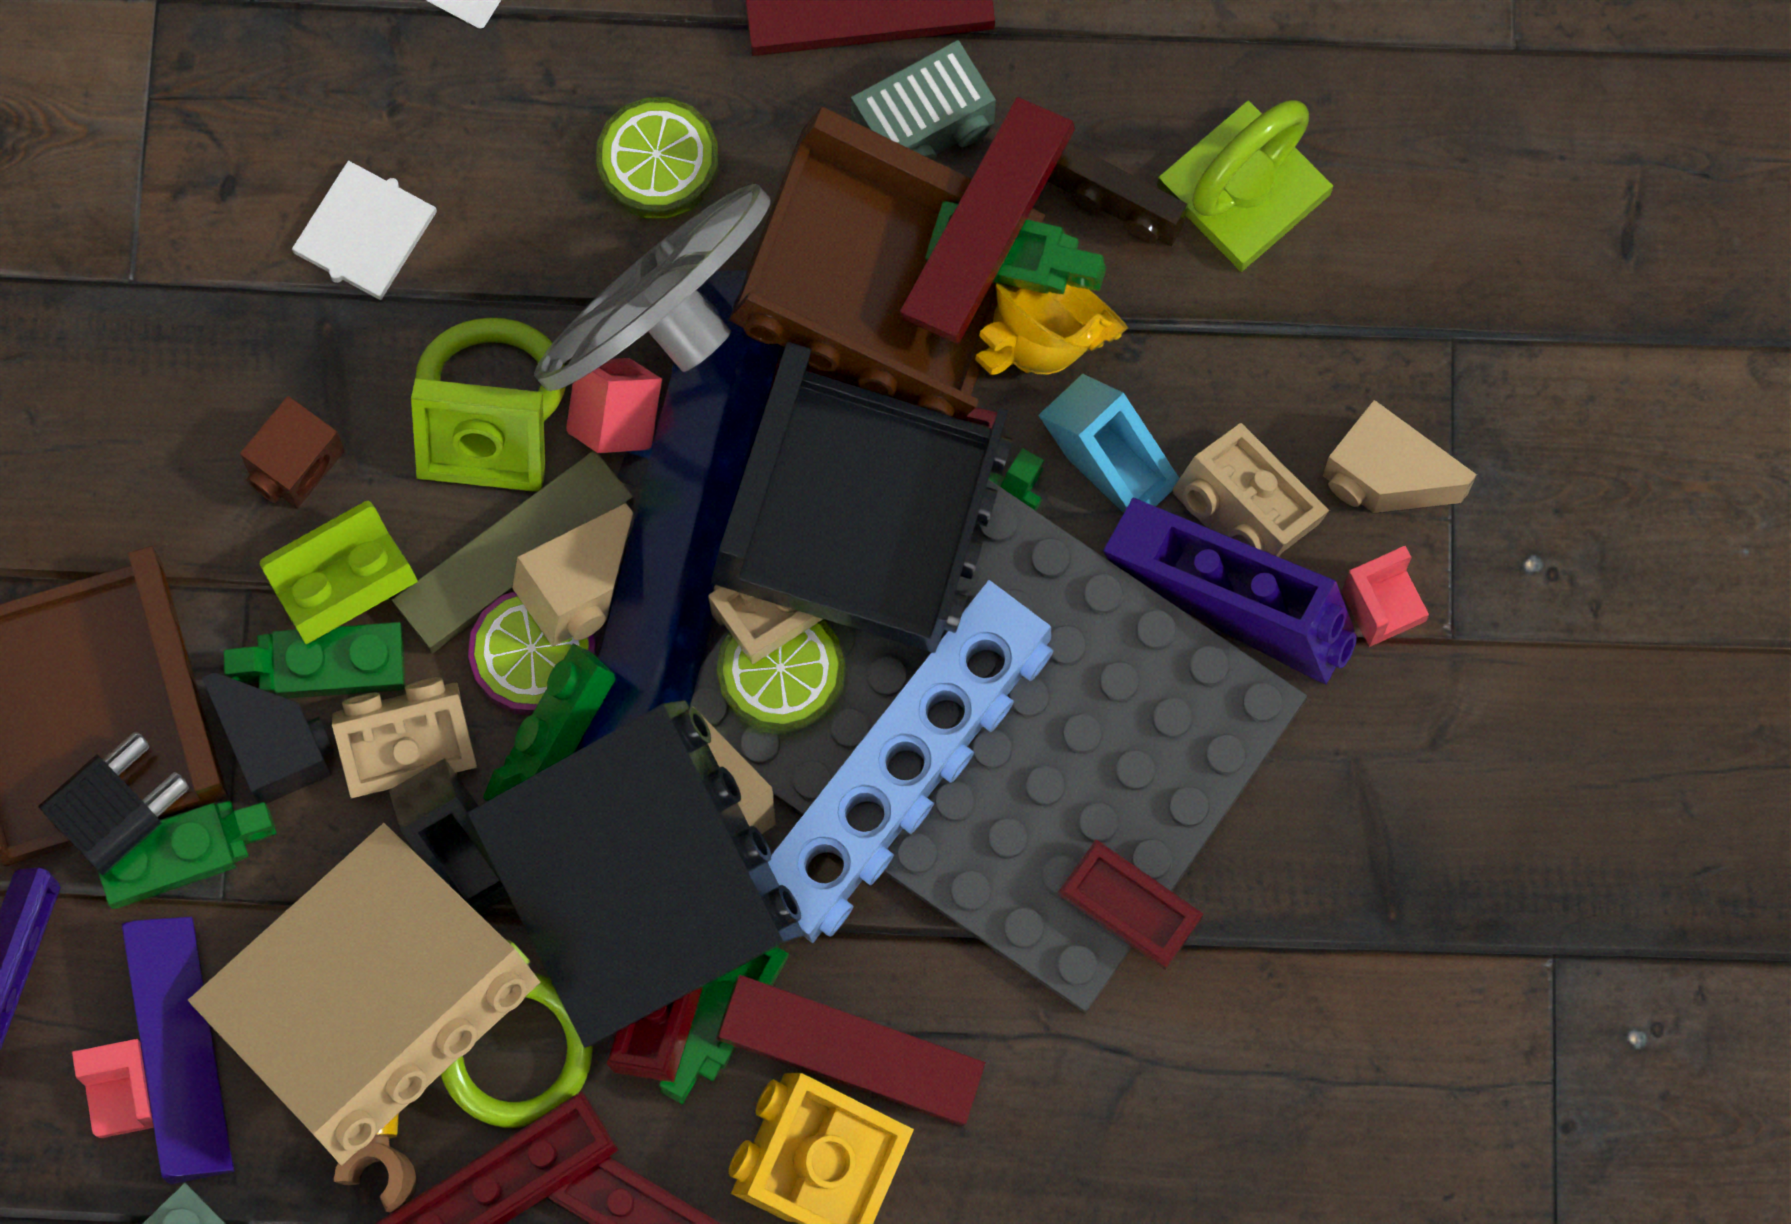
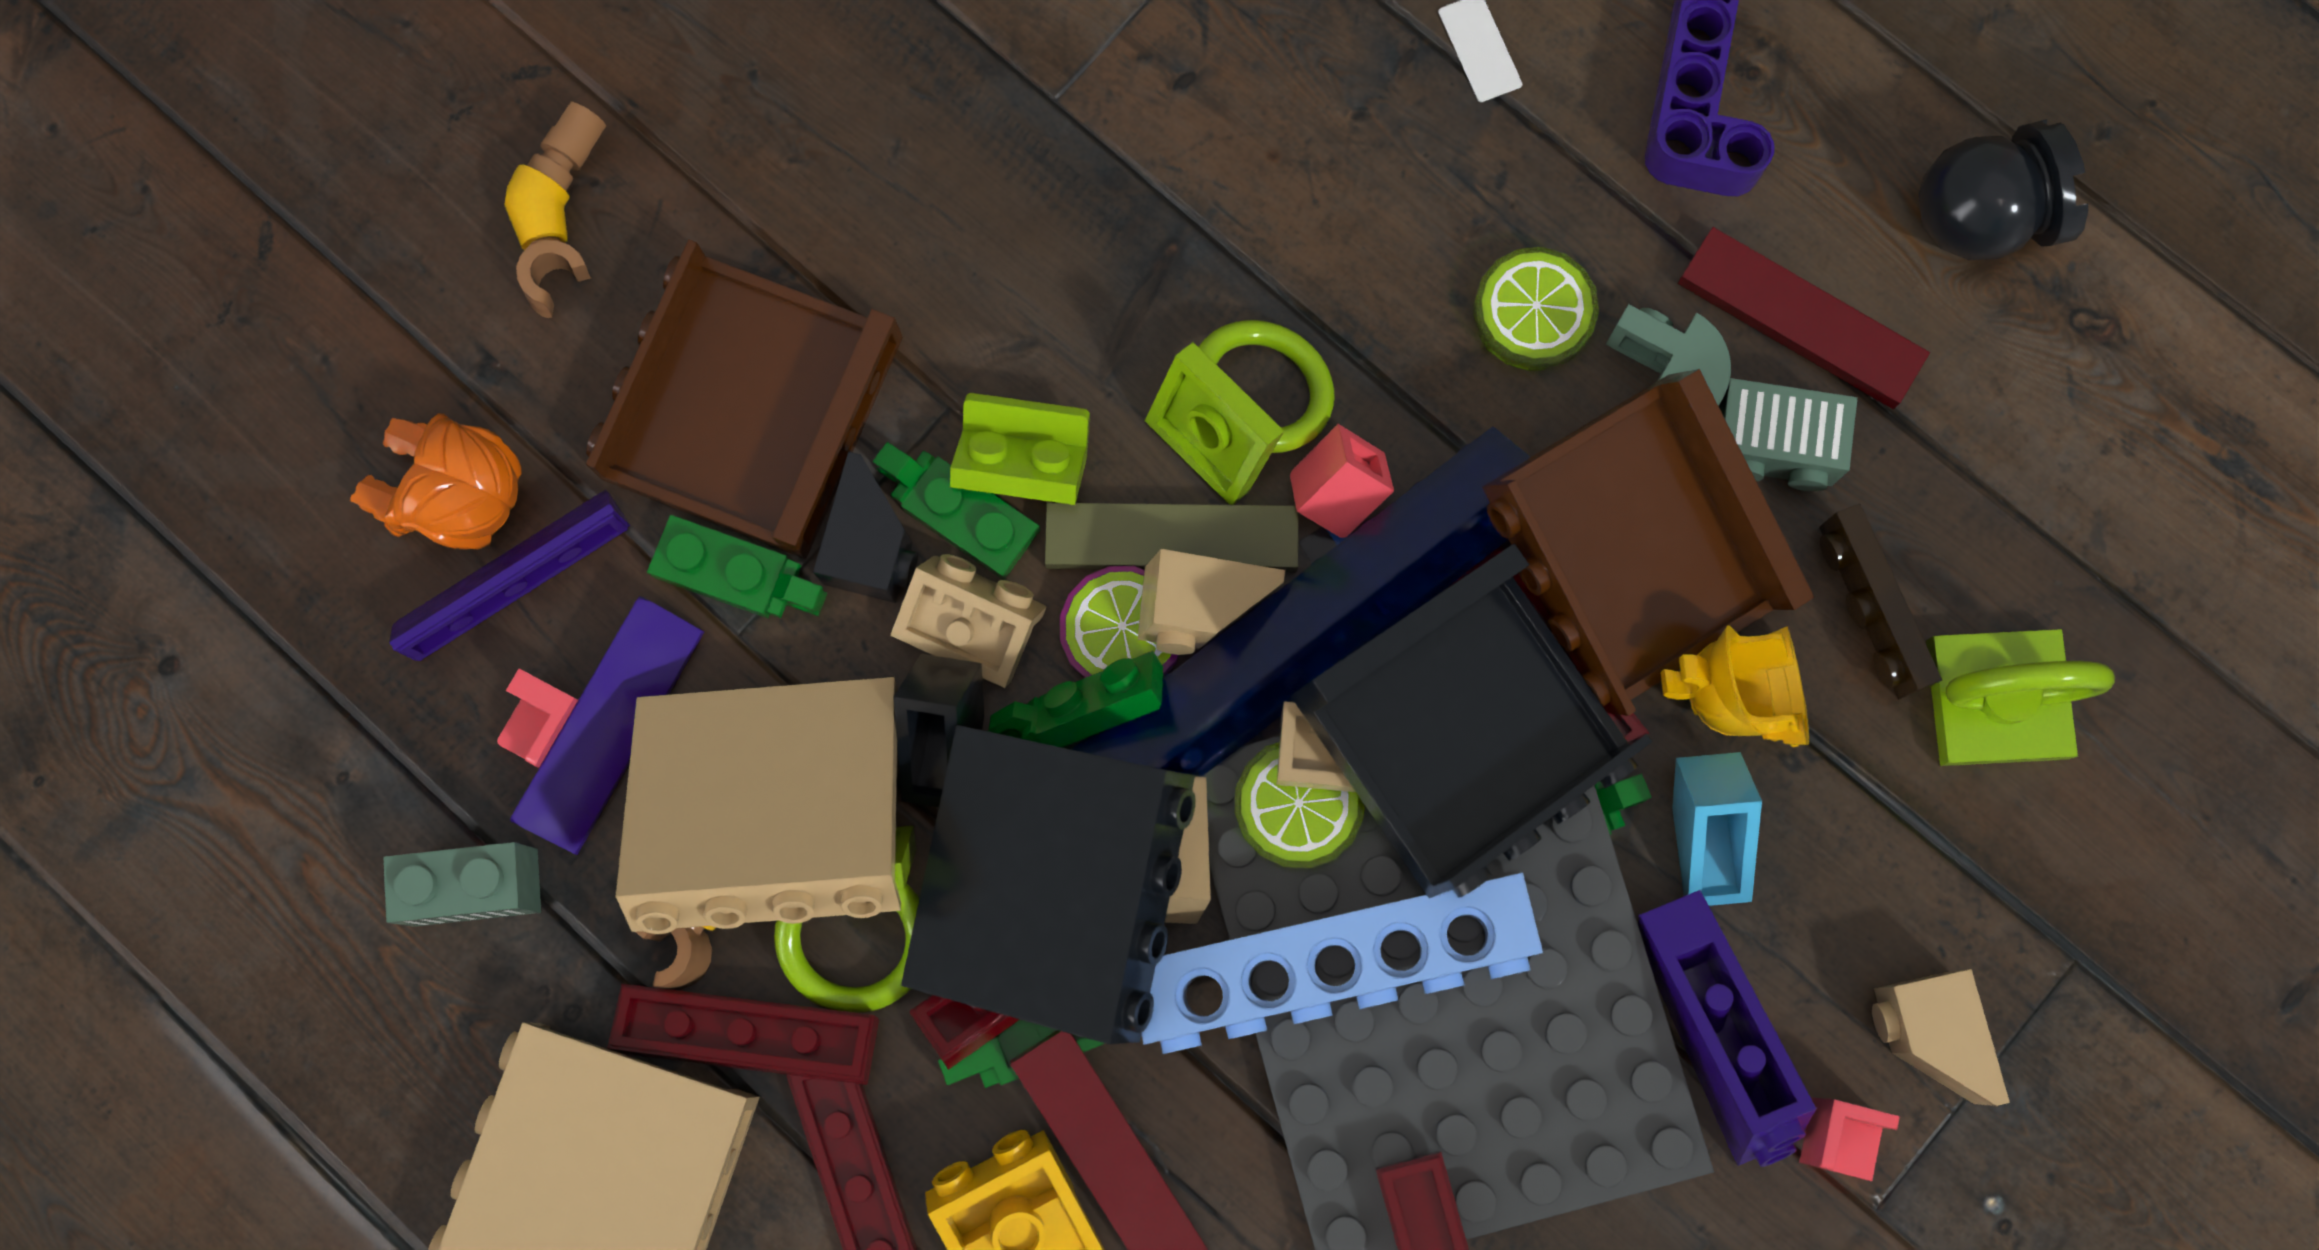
camera: 45 degrees right, 5 degrees up
(103, 812) = (694, 497): black piece -> none
(291, 454) = (1061, 326): copper brick -> none
(364, 230) = (1261, 193): white piece -> none
(660, 296) = (1441, 425): light grey wheel -> none
(774, 114) = (1656, 344): none -> sand green brick
(987, 220) = (1763, 567): dark red tile -> none
(1040, 258) = (1762, 607): green hinge -> none
(1248, 494) = (1798, 960): tan bracket -> none

